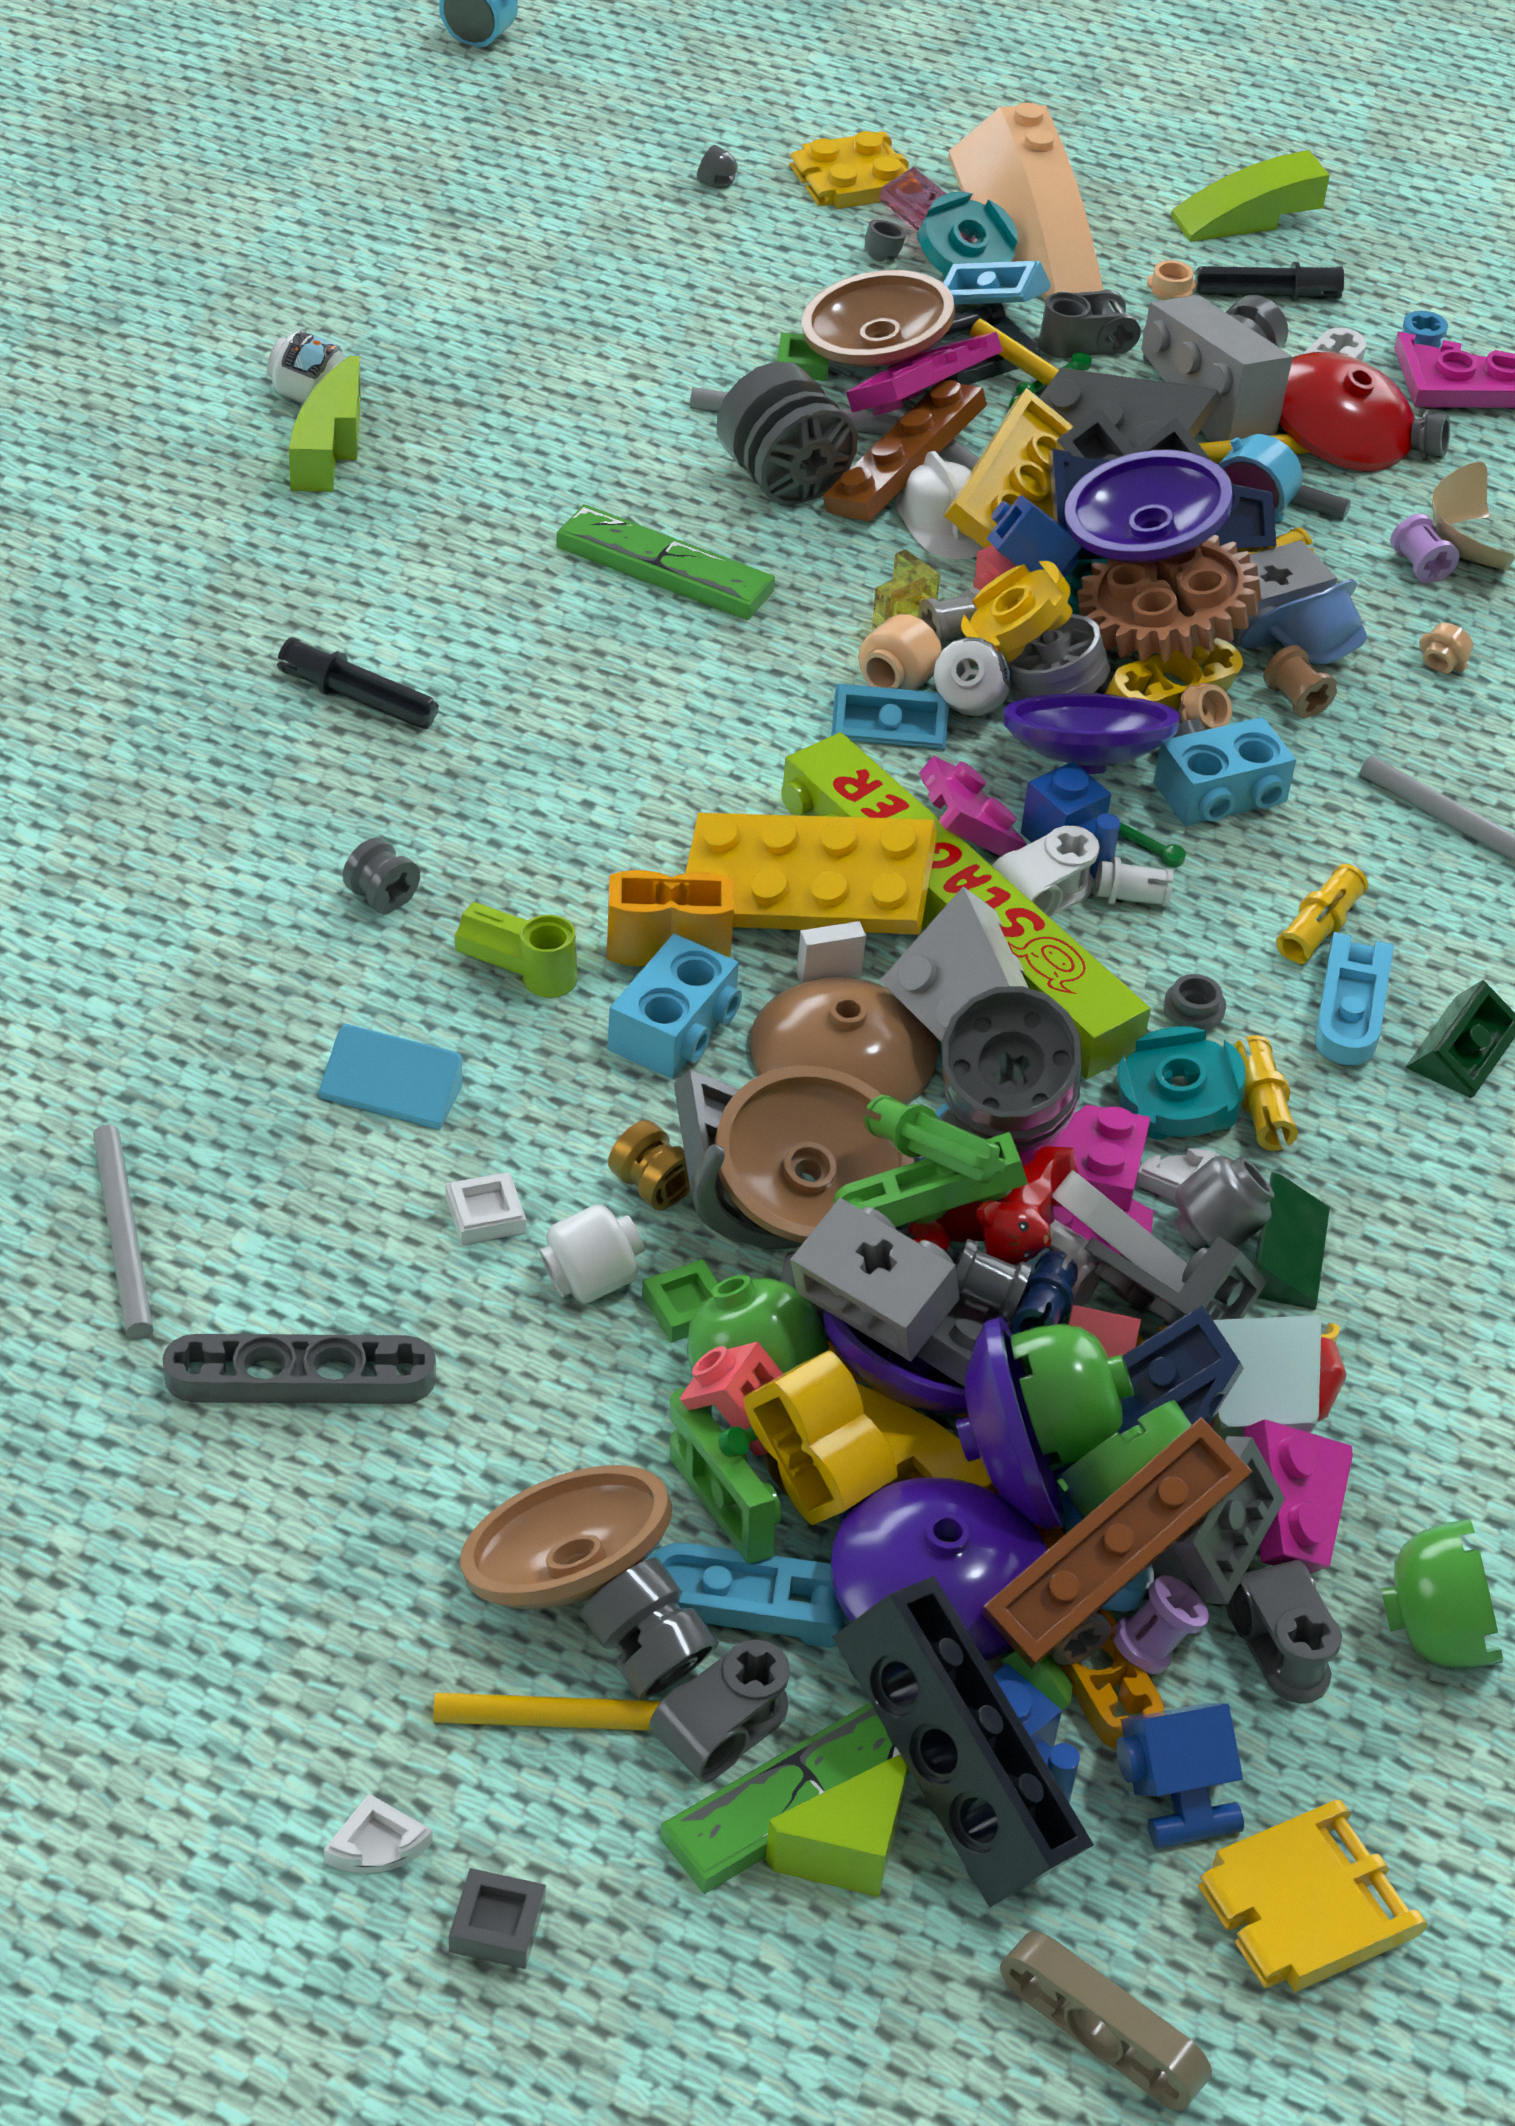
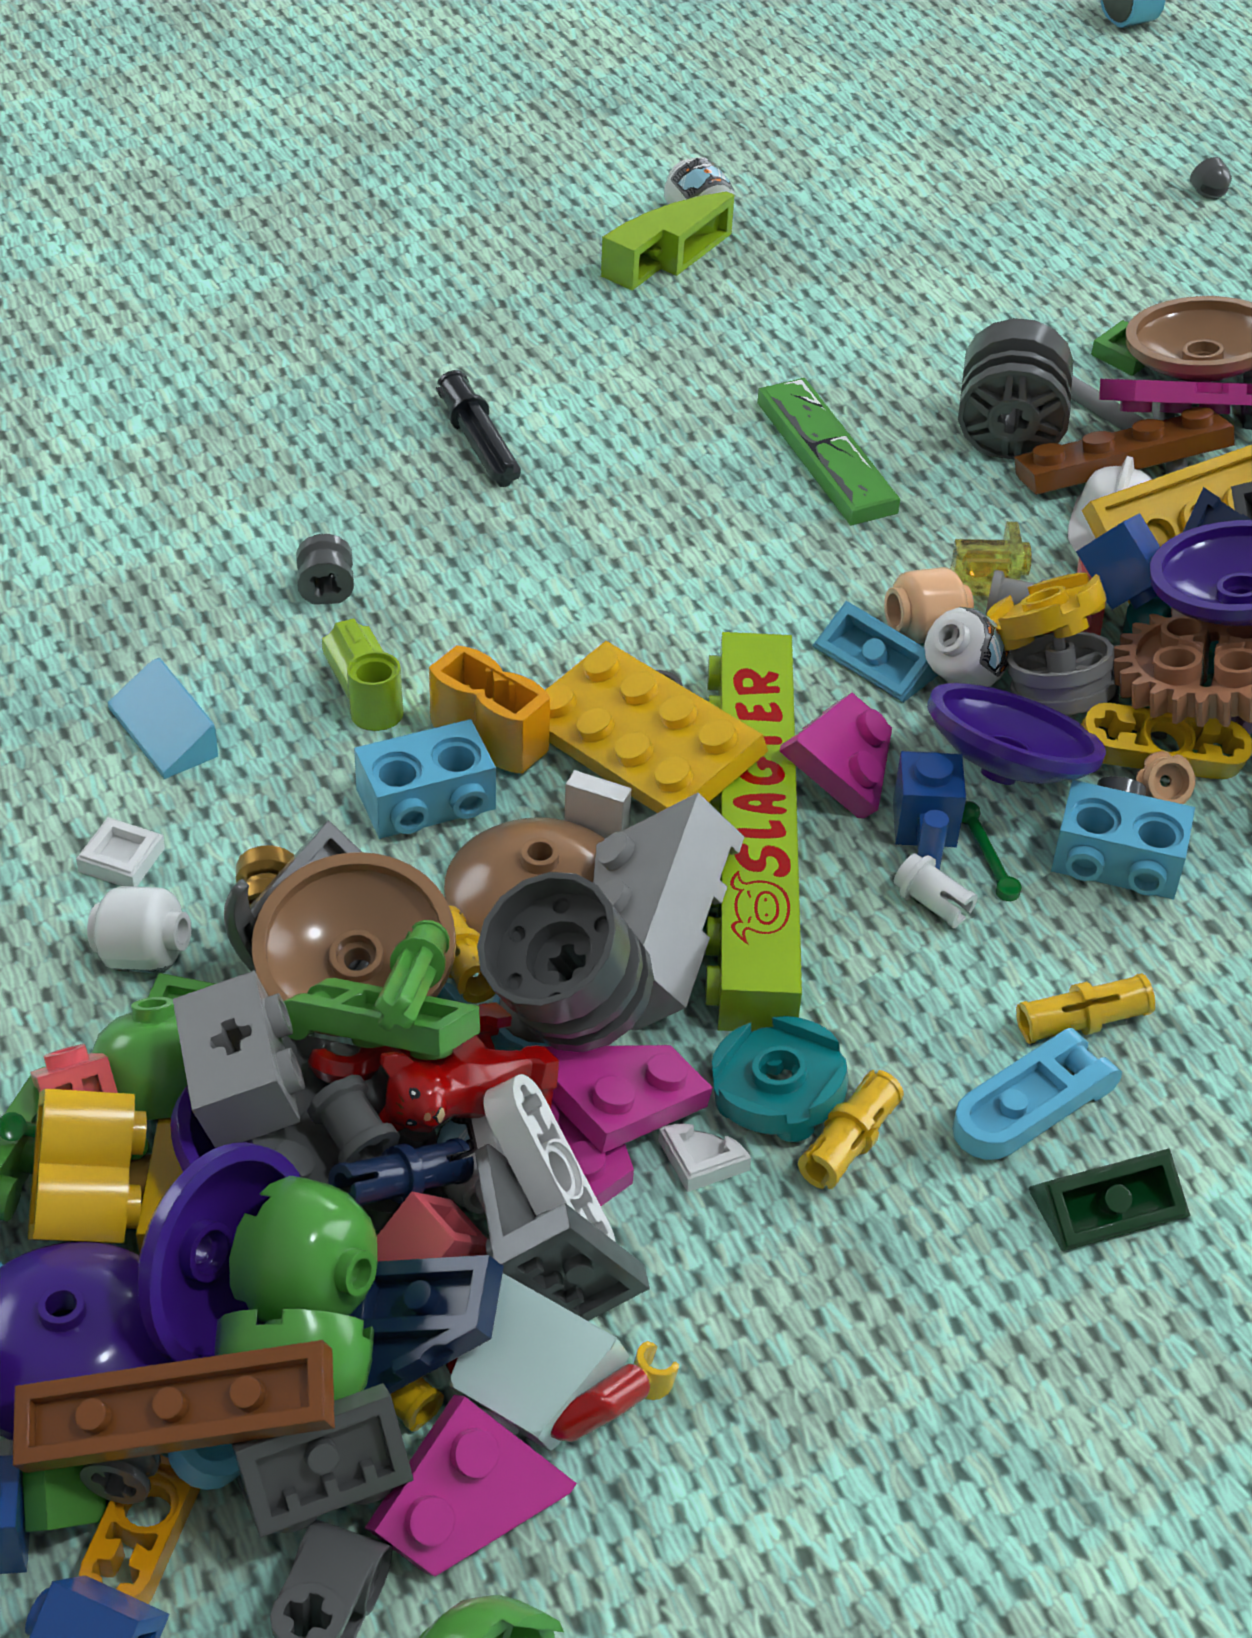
camera: 40 degrees right, 0 degrees up
(1053, 868) = (848, 841): white piece -> none
(1160, 1624) = (200, 1516): lavender bush -> none
(1195, 1002) = (881, 1006): dark grey plate -> none
(1223, 1201) = (686, 1197): flat silver head -> none
(1292, 1245) = (726, 1271): dark green slope -> none

